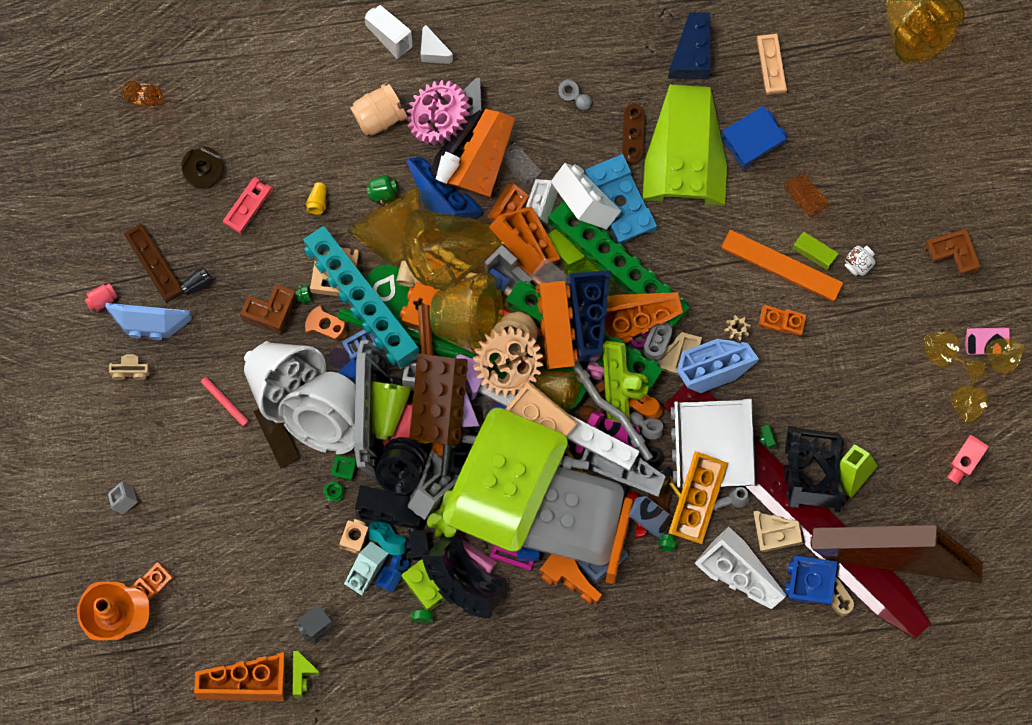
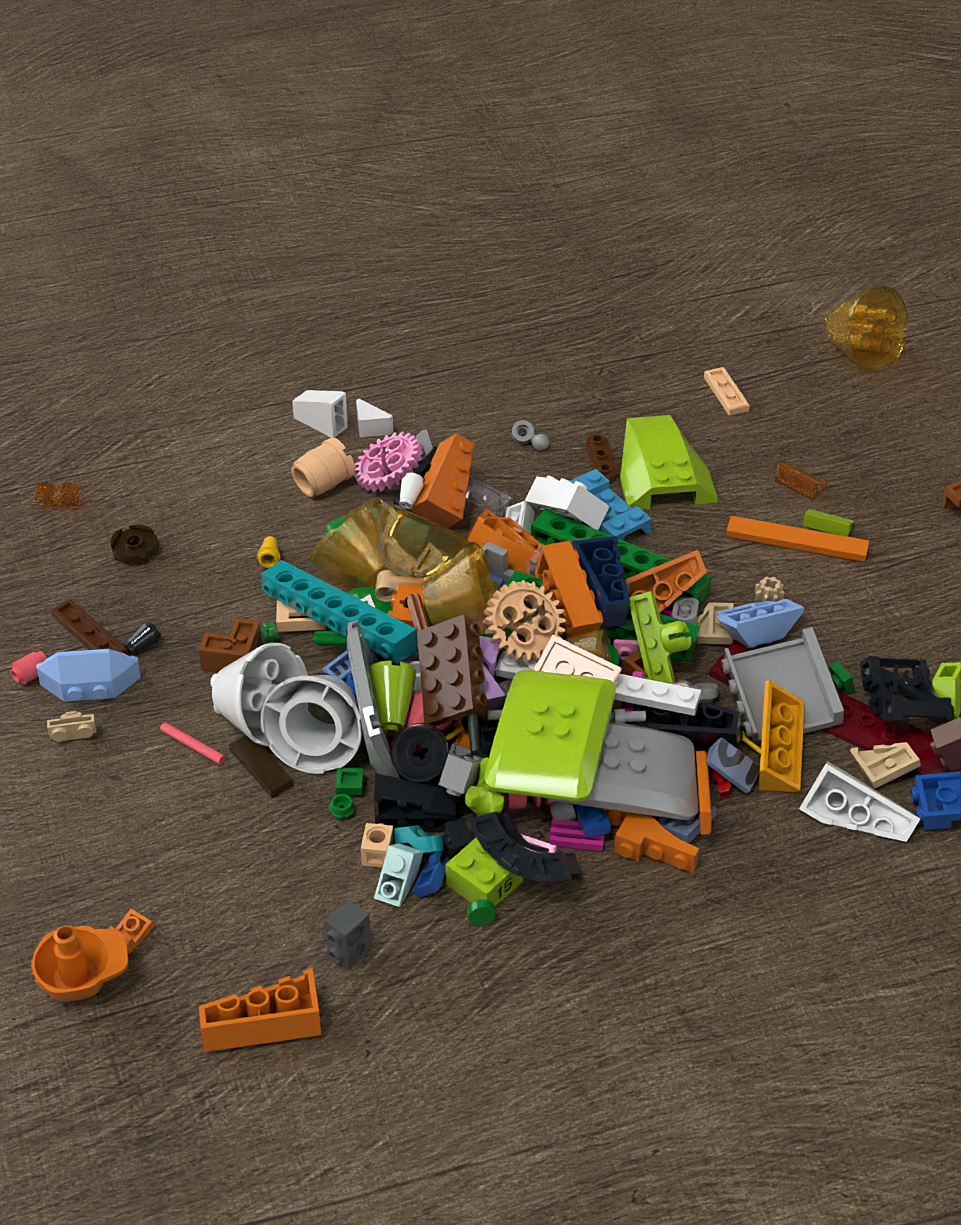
camera: 10 degrees left, 30 degrees down
(122, 497) = (77, 852): light grey slope -> none
(247, 205) = (190, 568): coral plate -> none
(301, 668) = (341, 993): lime slope -> none
(317, 316) = (314, 654): orange piece -> none
(636, 440) = (615, 649): light grey bar -> none
(650, 408) = (688, 670): orange piece -> none
(667, 543) = (759, 794): green plate -> none
(693, 49) = (644, 386): dark blue wedge -> none
(733, 499) = (826, 741): light grey bar -> none
(753, 136) = (727, 441): blue panel -> none
(782, 321) = (821, 582): orange slope -> none
(860, 260) = (880, 519): white head -> none

